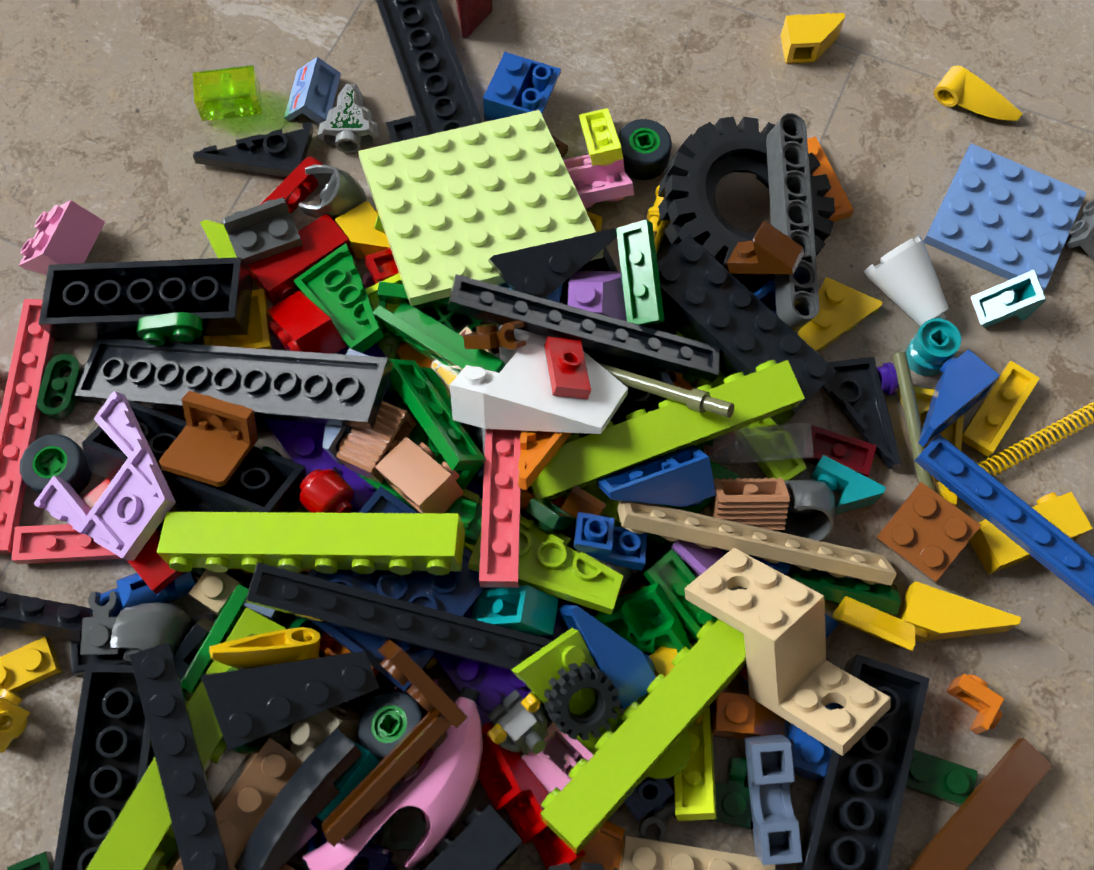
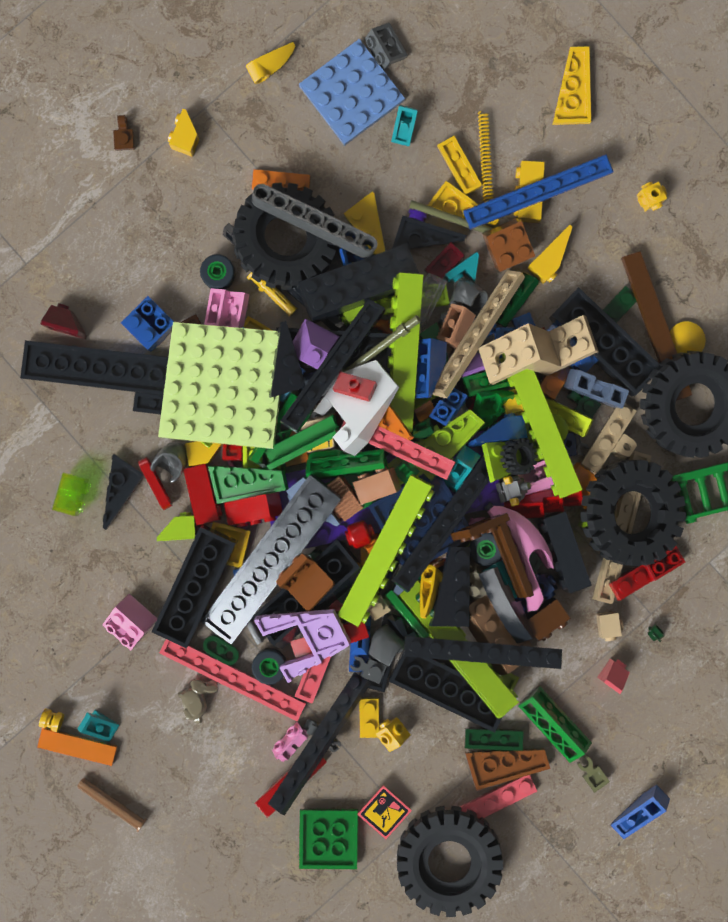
camera: 60 degrees left, 20 degrees up
(169, 327) = (227, 573): green plate -> none
(262, 231) = (183, 509): dark grey bracket -> none
(313, 91) = (89, 444): medium blue panel -> none
(349, 122) = (119, 431): light grey rock -> none
(490, 337) = (319, 415): reddish brown plate -> none
(600, 137) = (202, 294): neon yellow plate -> none
(640, 273) = (314, 321): plate -> none
(767, 254) = (333, 249): reddish brown slope -> none
(875, 623) = (542, 297): yellow slope -> none
(910, 281) = (370, 171): white cone -> none
(932, 346) = (412, 181): teal wheel -> none
(960, 388) = (444, 187): blue slope -> none
(976, 694) = (592, 265): orange bracket -> none

